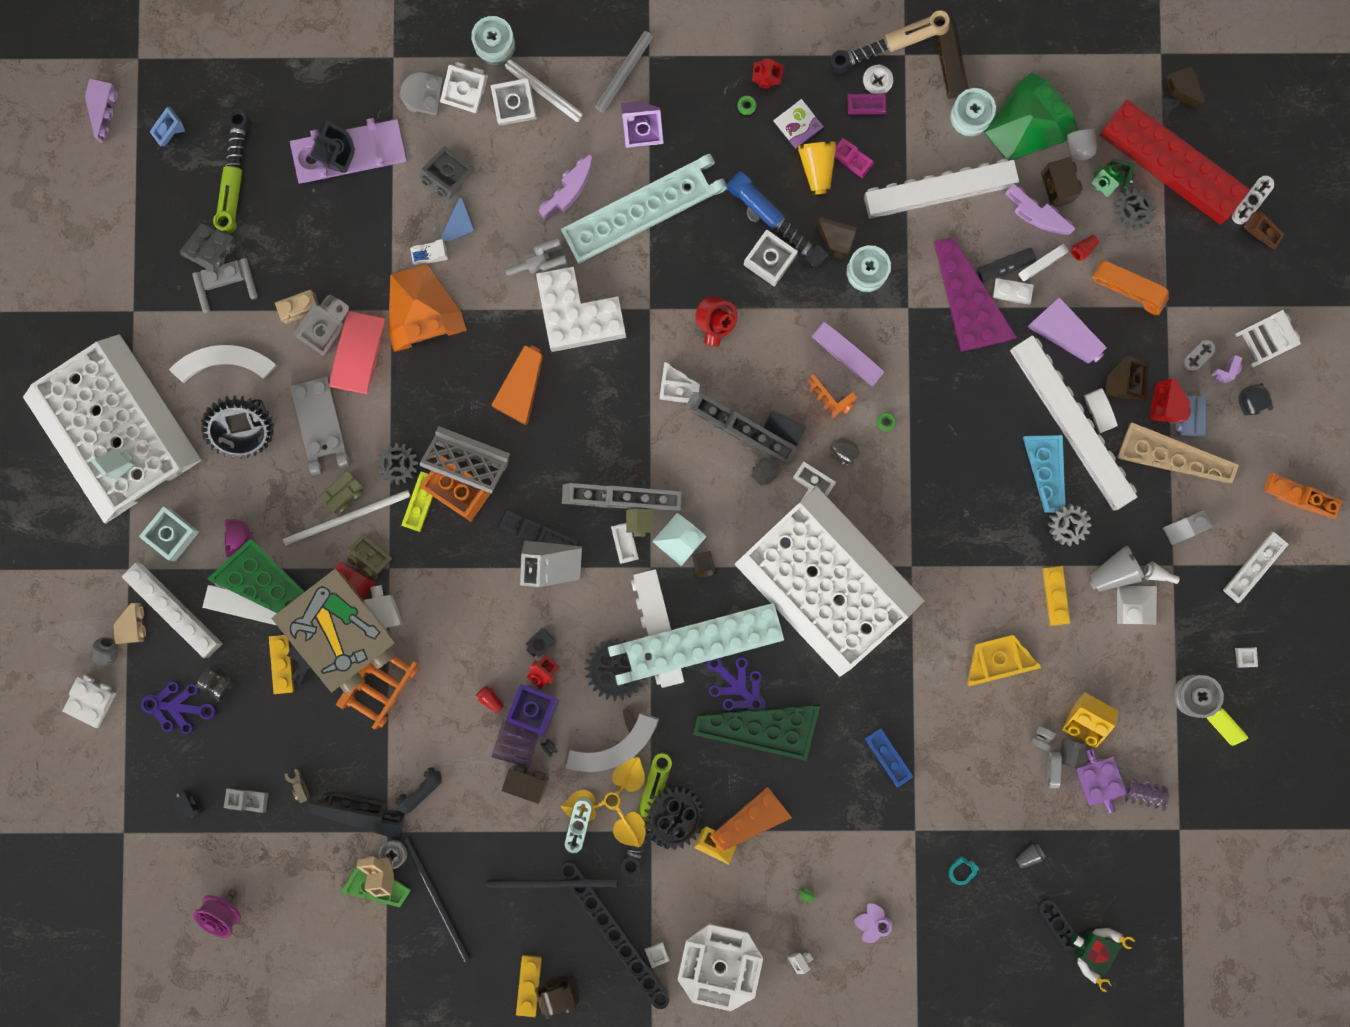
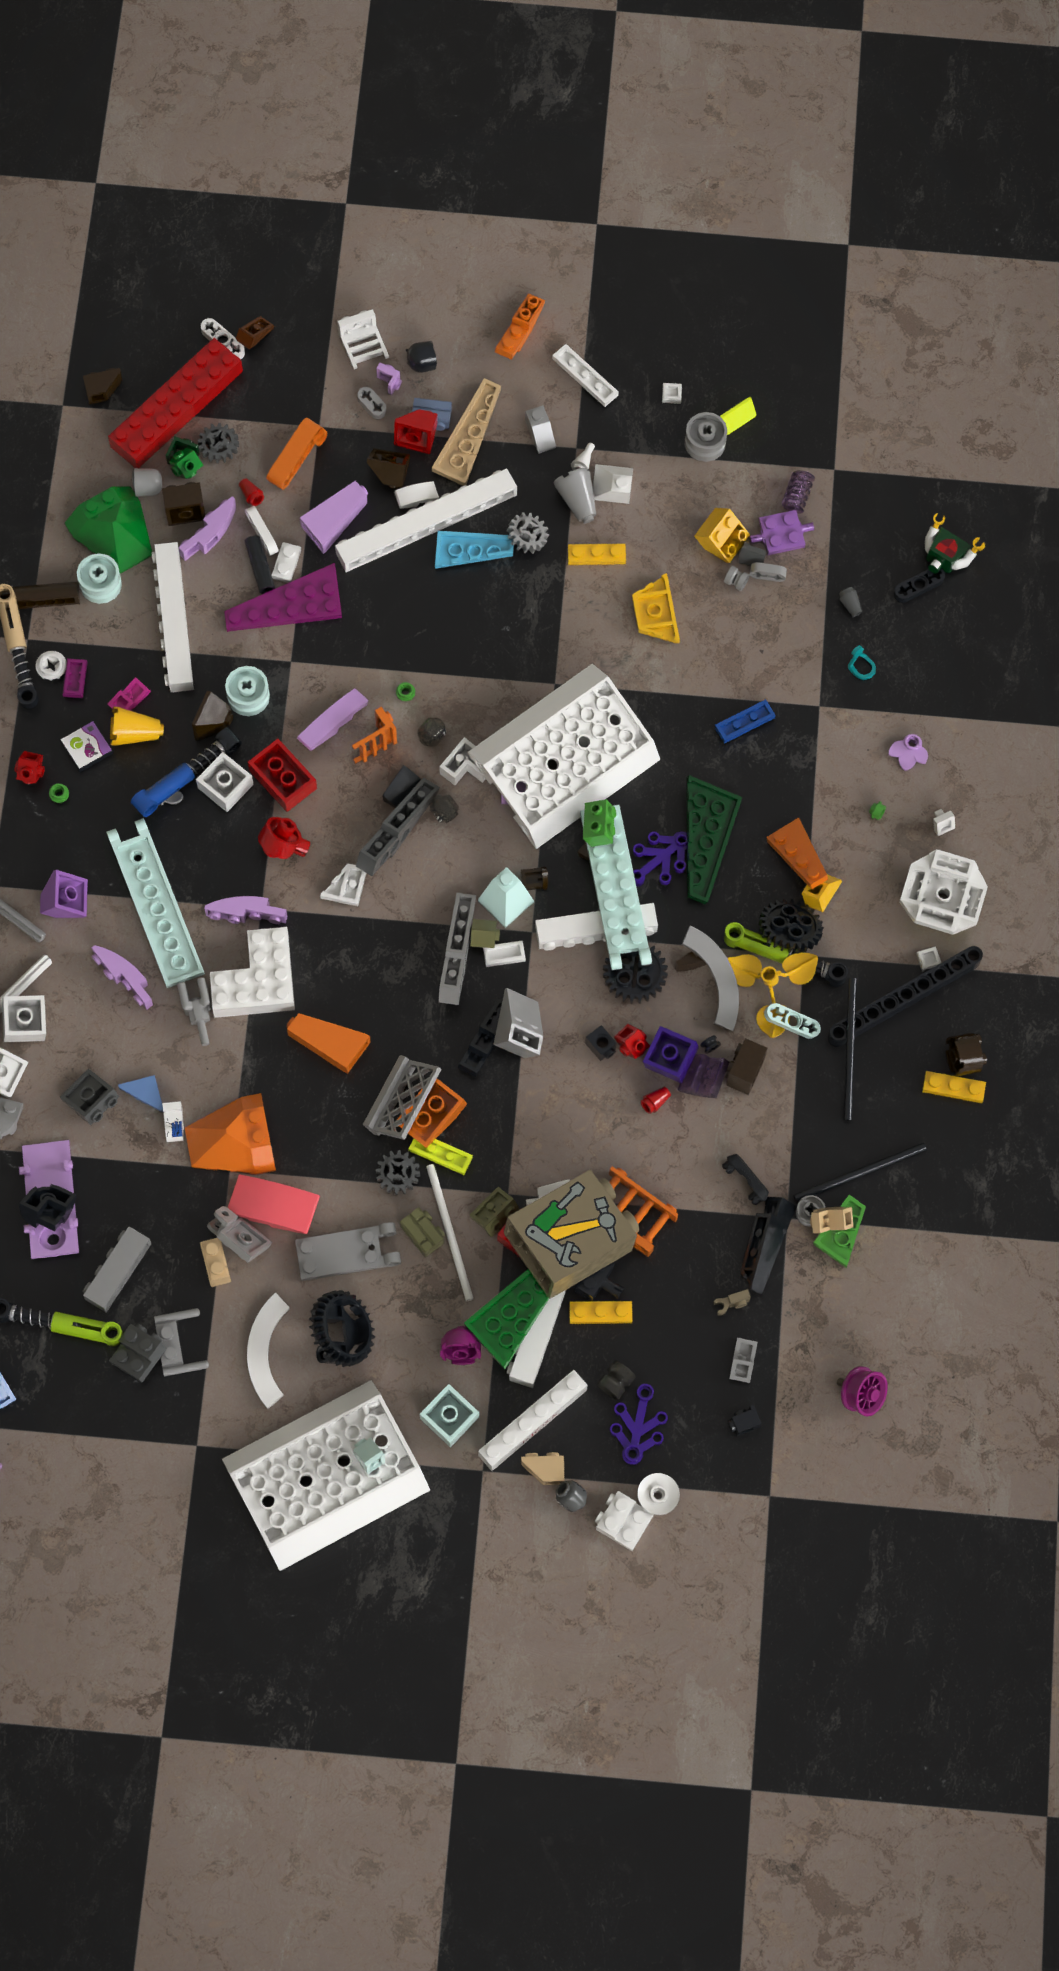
camera: 90 degrees left, 15 degrees down
(103, 731) = (665, 1487): none -> white dish
(285, 219) = (117, 1269): none -> light grey brick
(643, 287) = (238, 908): none -> lavender slope
(755, 622) = (599, 823): none -> bright green brick
(783, 311) = (282, 775): none -> red brick

